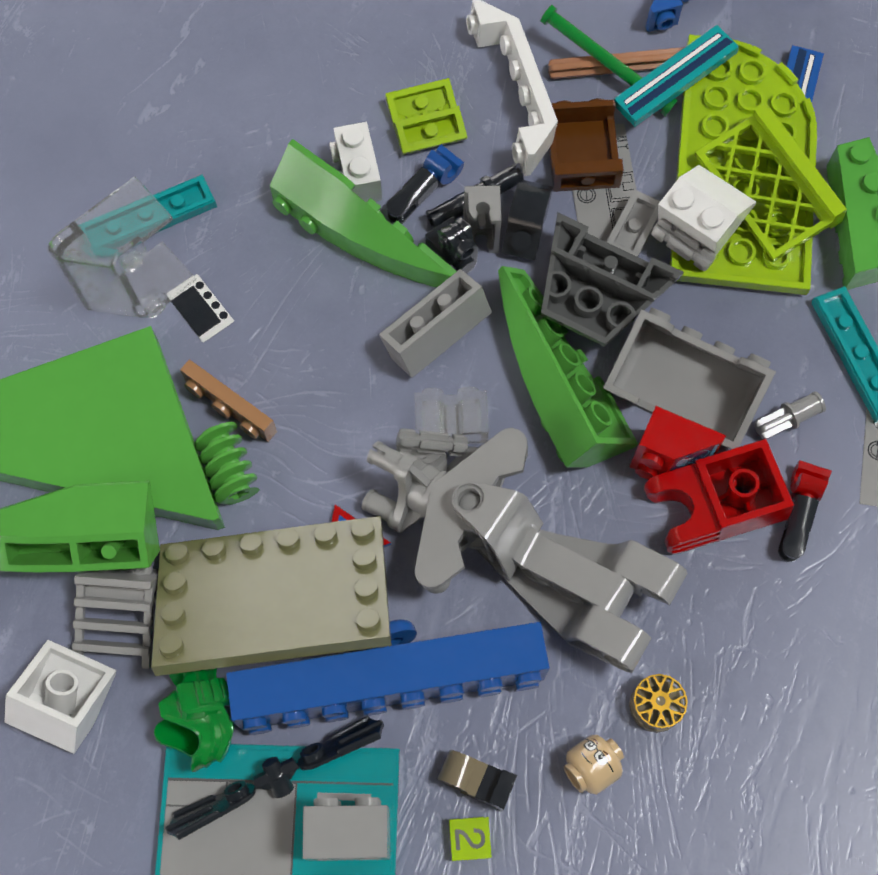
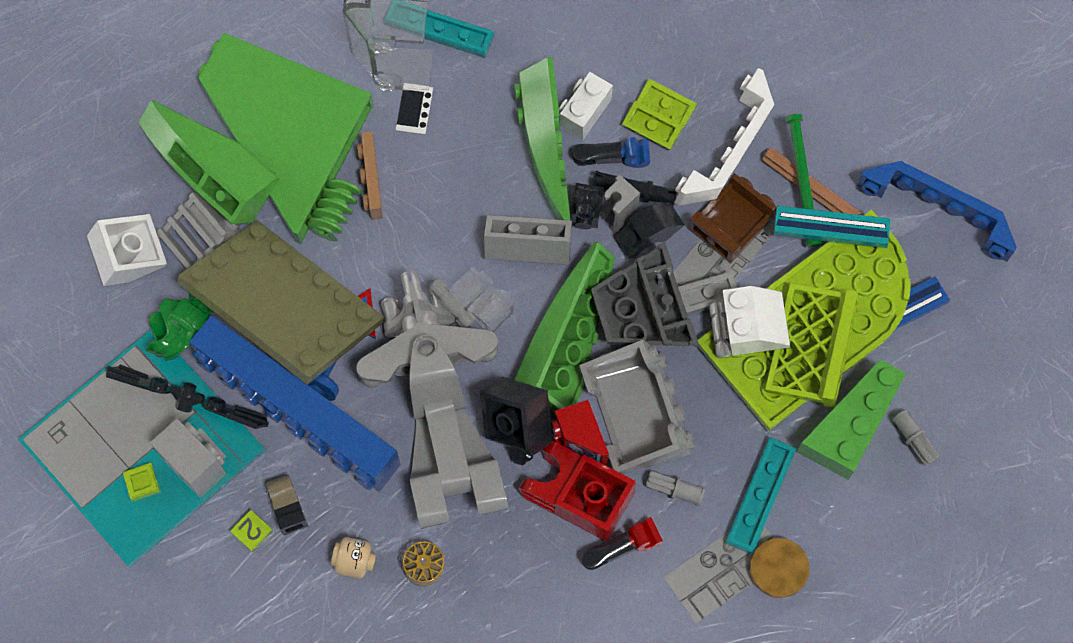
camera: 45 degrees right, 0 degrees up
(606, 484) = (517, 417): none -> black hinge

